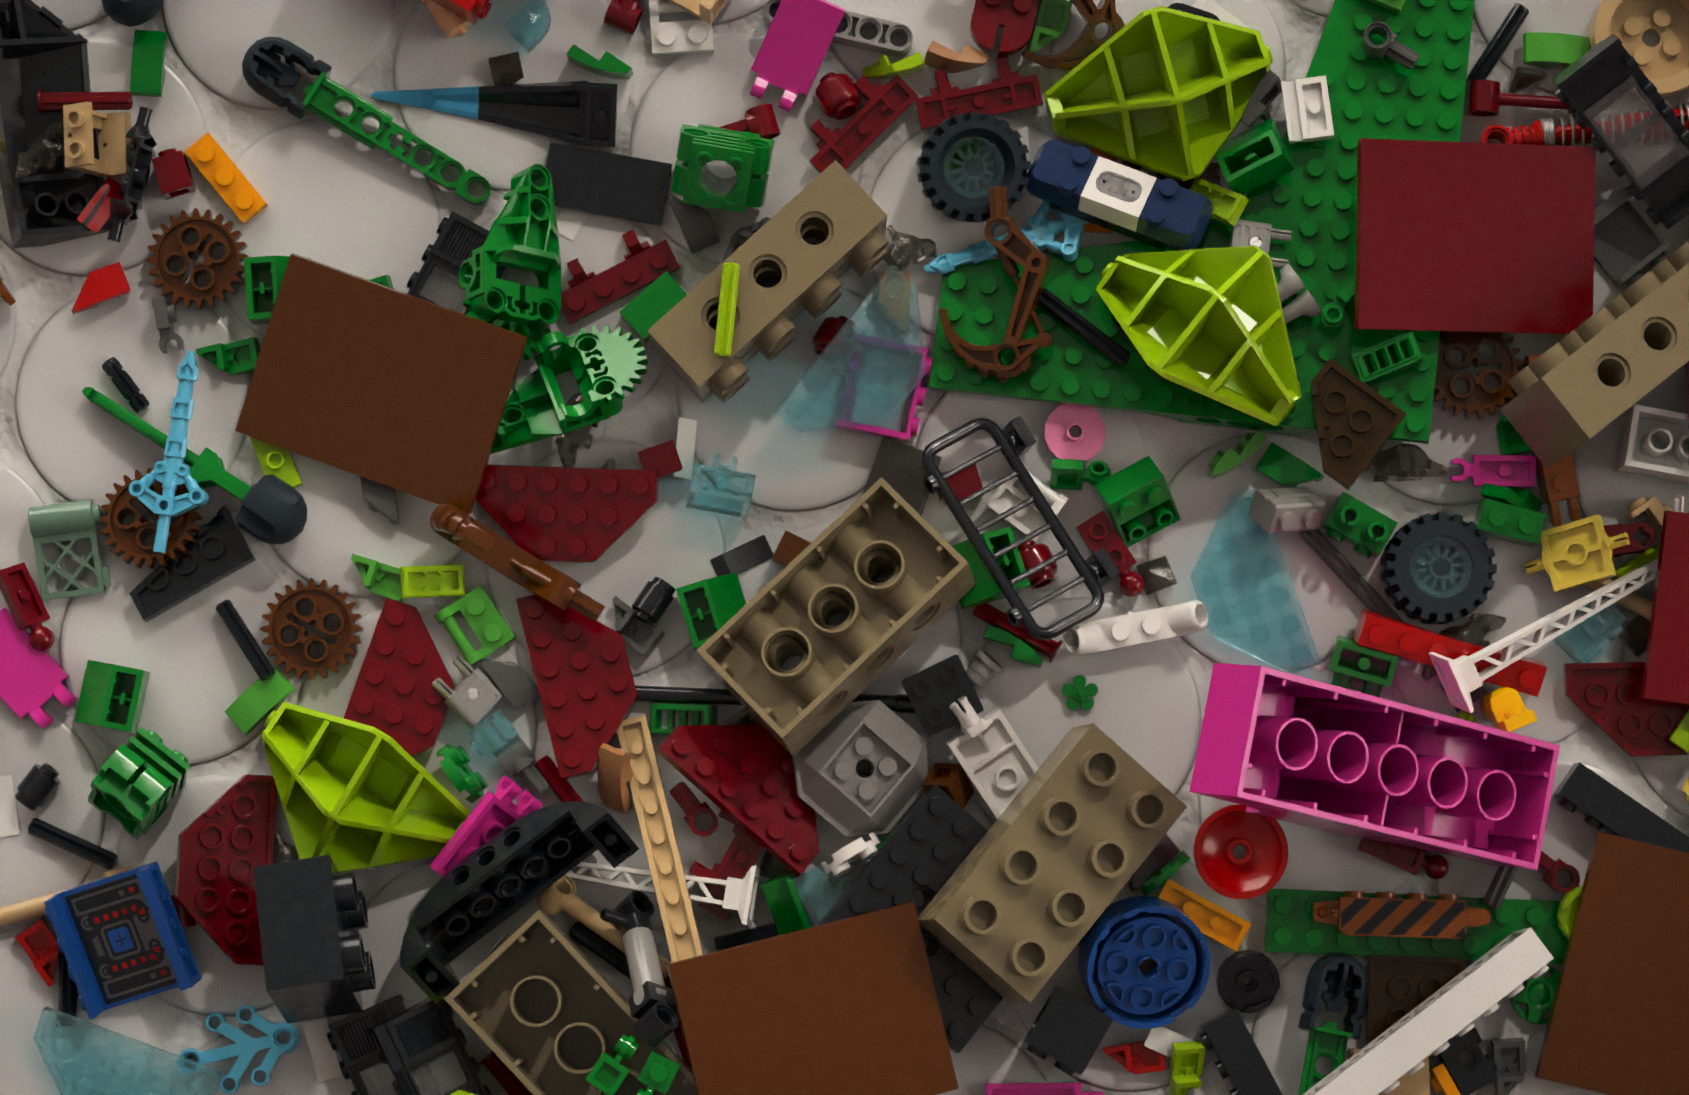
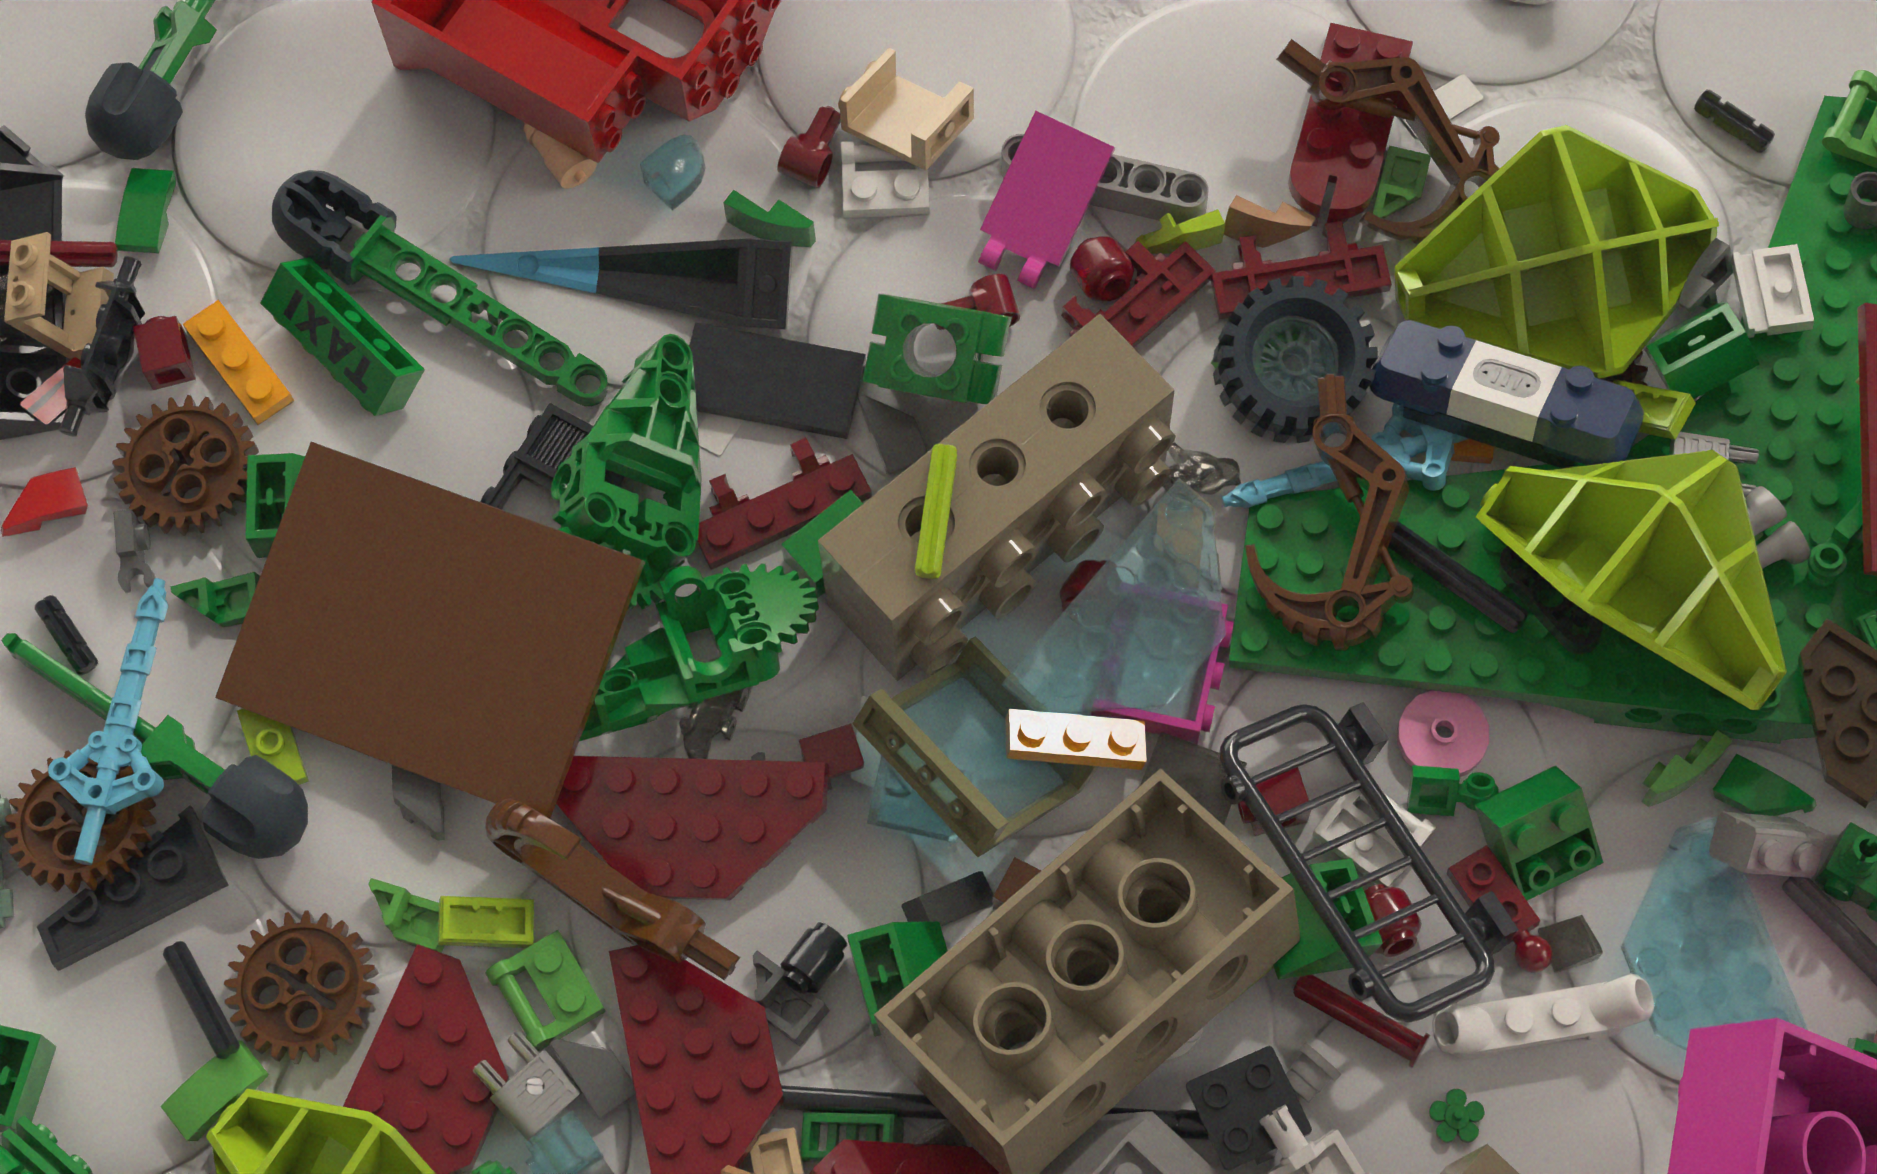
camera: 10 degrees right, 15 degrees down
(300, 161) = (342, 336): none -> green brick
(506, 69) = (639, 227): clear smoke slope -> none
(757, 457) = (952, 751): none -> panel
(825, 448) = (1075, 739): none -> plate
(1020, 652) = (1368, 1048): green slope -> none

